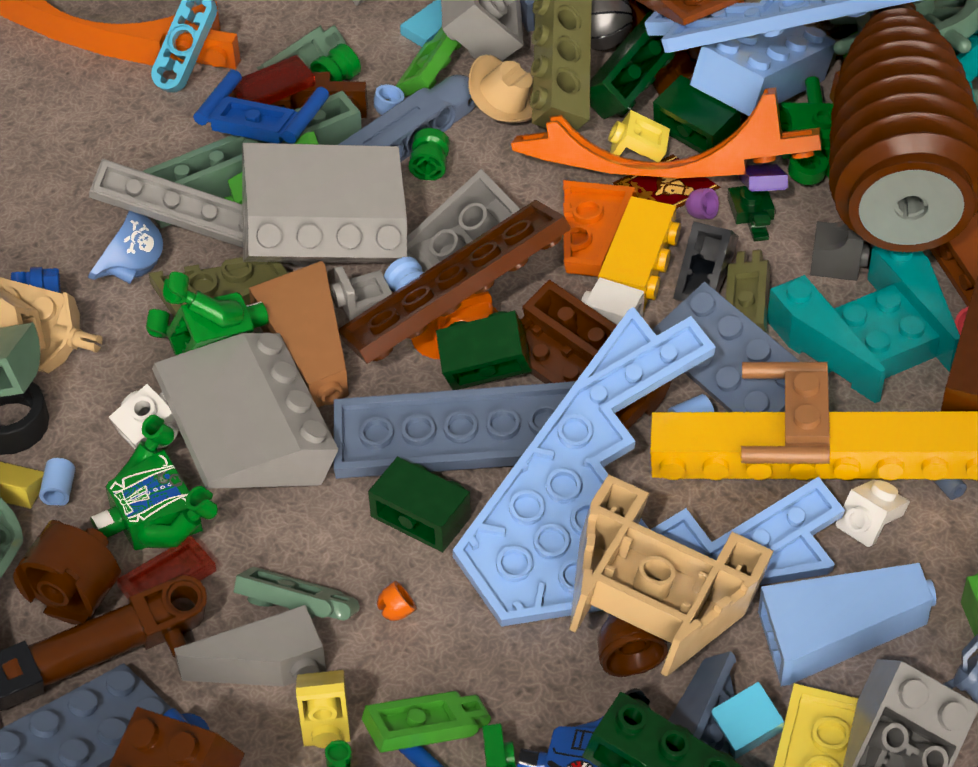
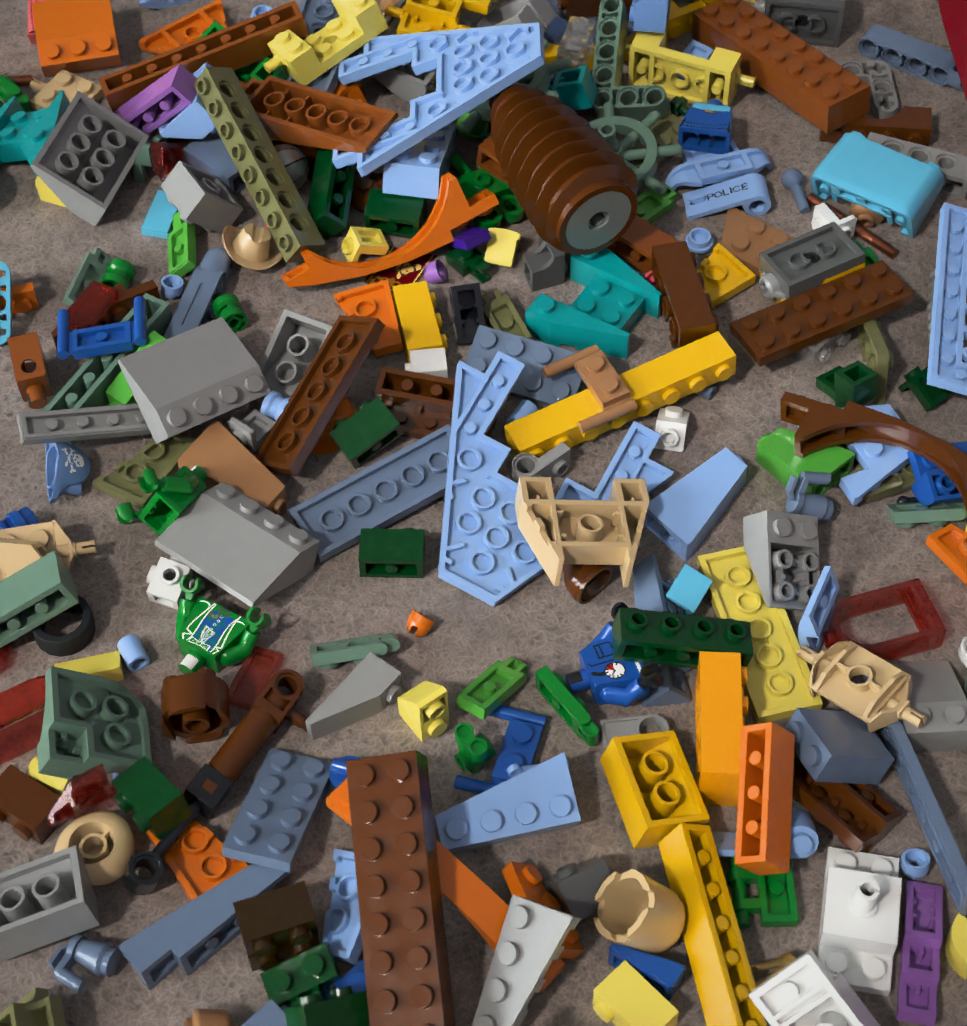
camera: 30 degrees left, 5 degrees up
(168, 121) = (31, 377): none -> dark orange torso
(671, 487) = (551, 464): none -> light grey plate
(801, 206) = (502, 247): none -> light yellow tile

